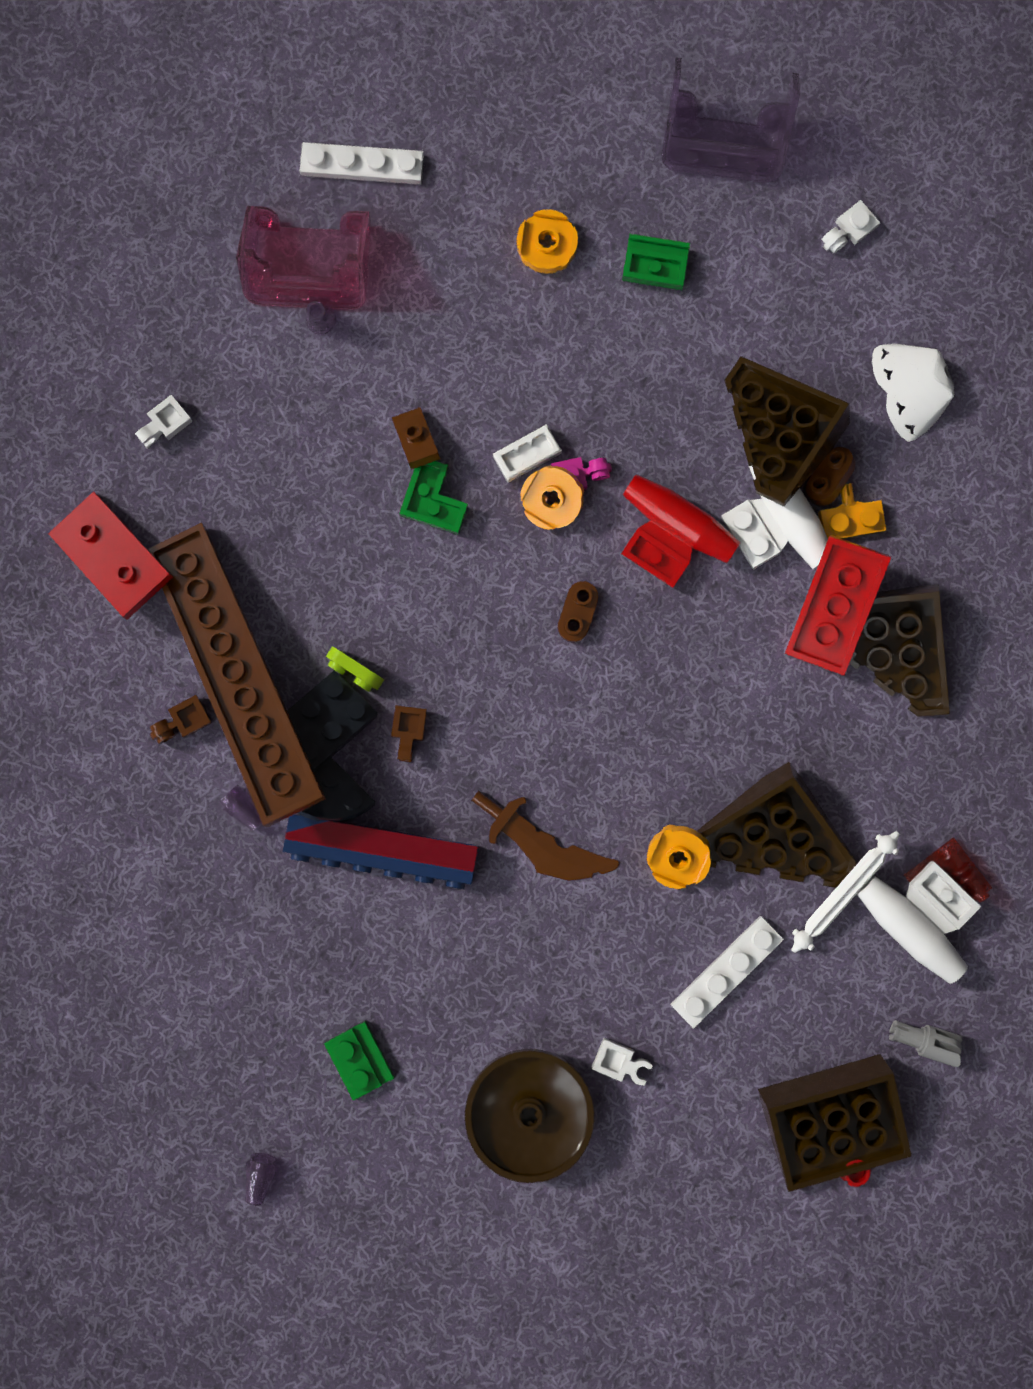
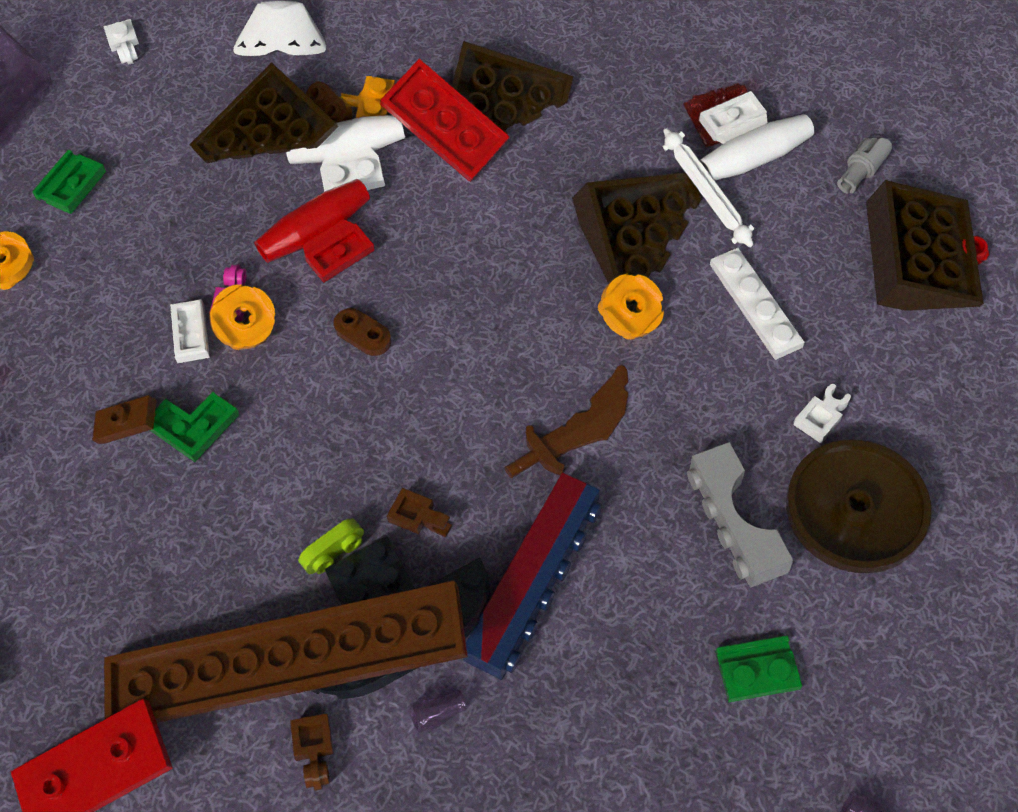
camera: 70 degrees left, 25 degrees down
(459, 1037) = (757, 551): none -> light grey arch

